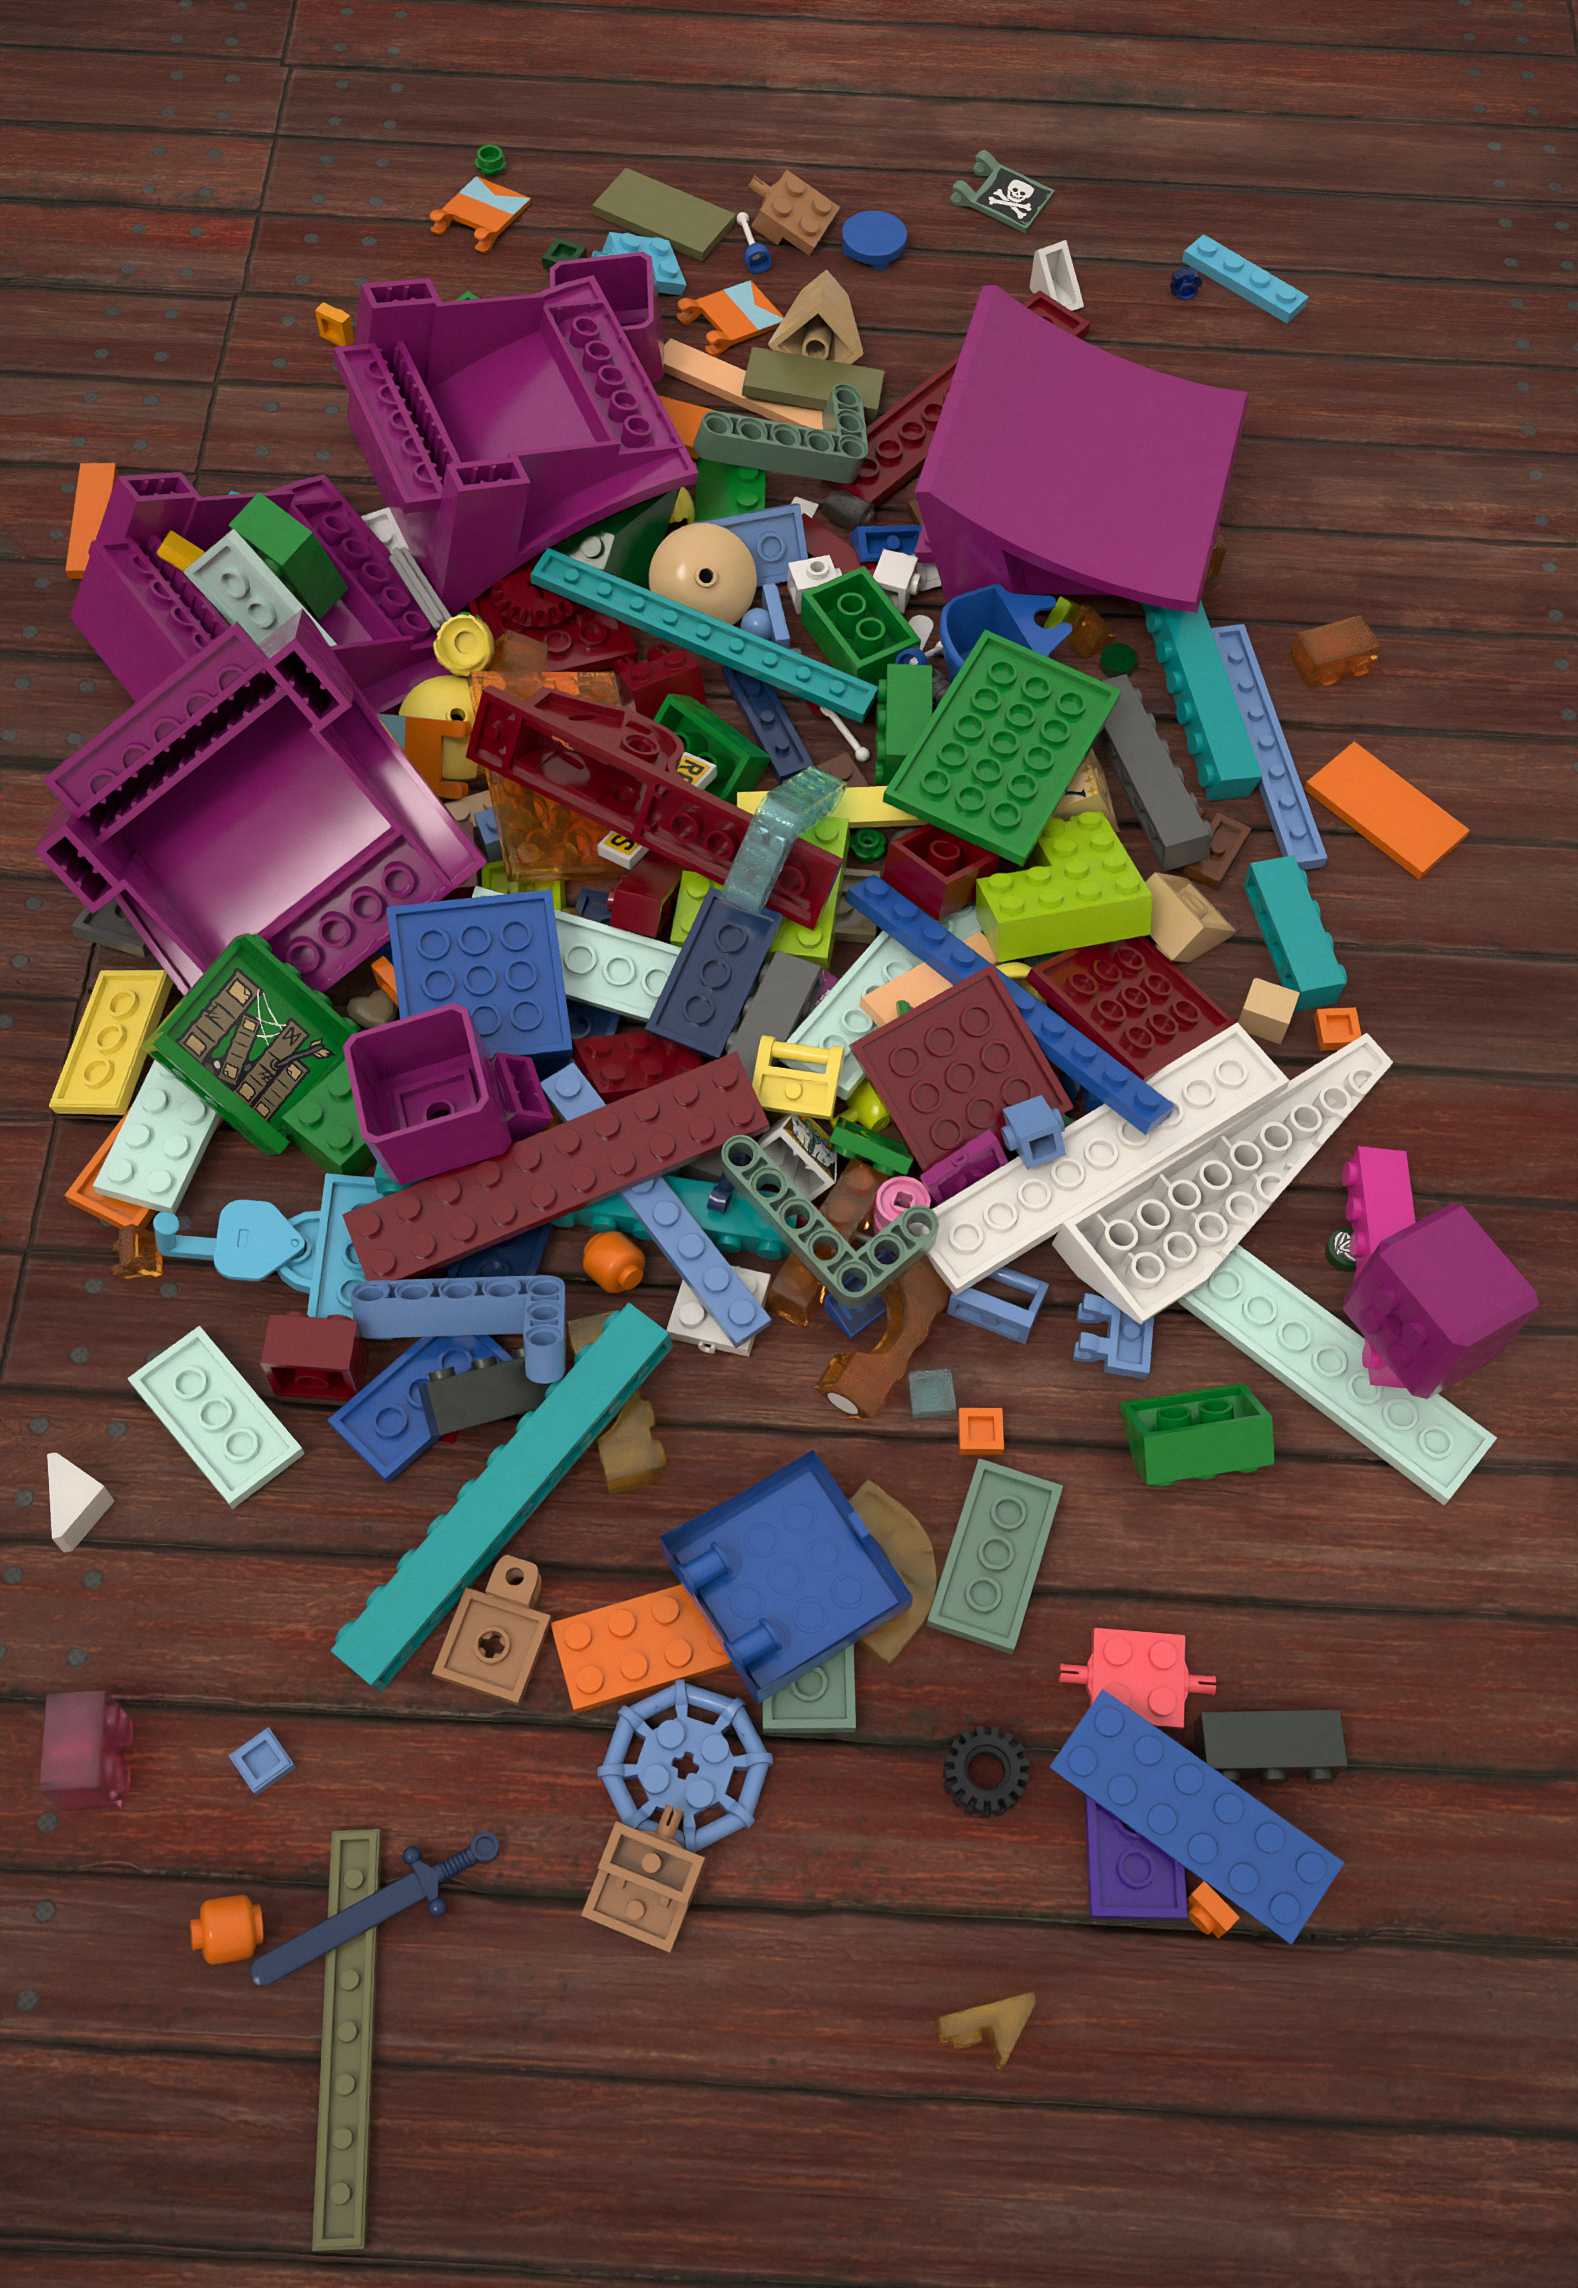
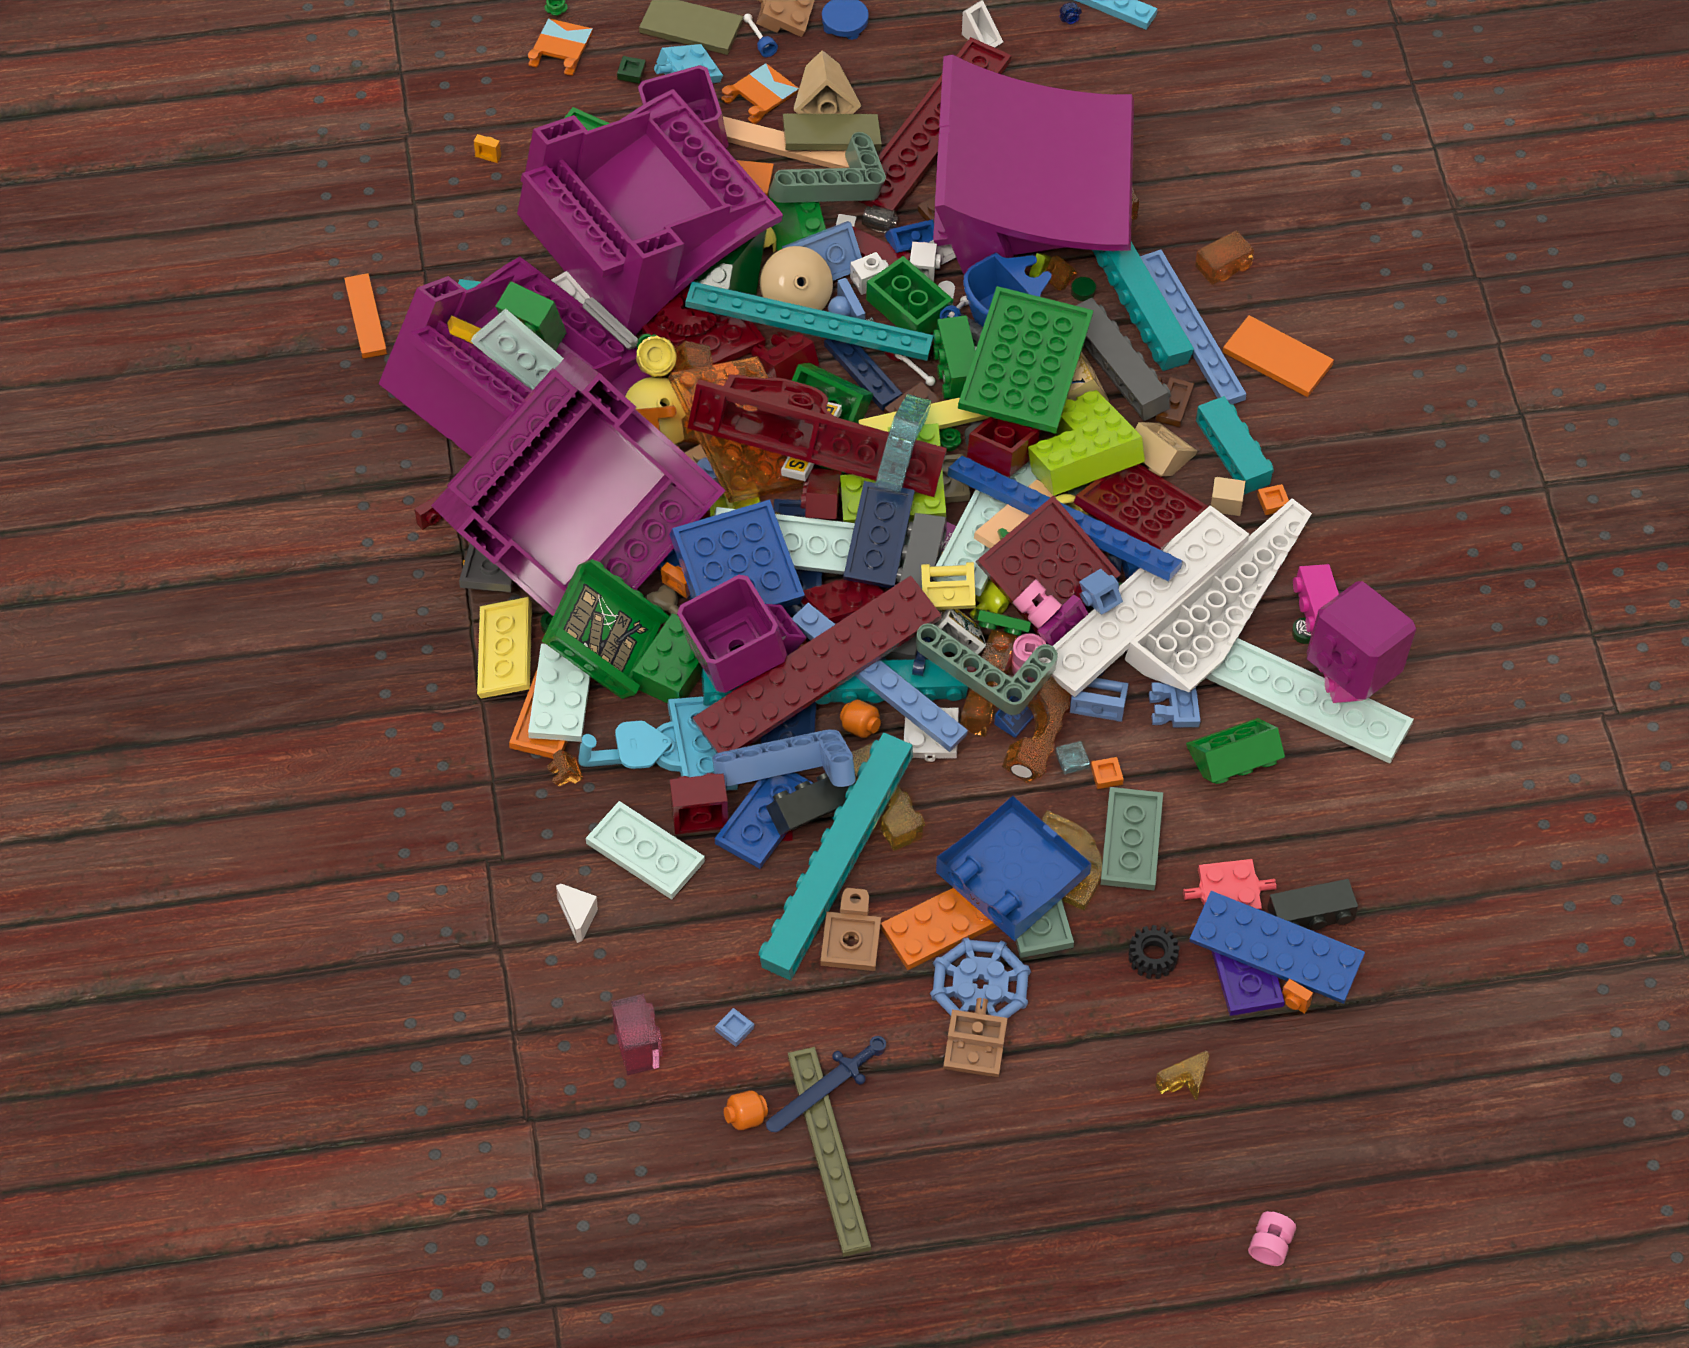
camera: 10 degrees left, 5 degrees down
(935, 1146) = (1043, 611): none -> bright pink wheel

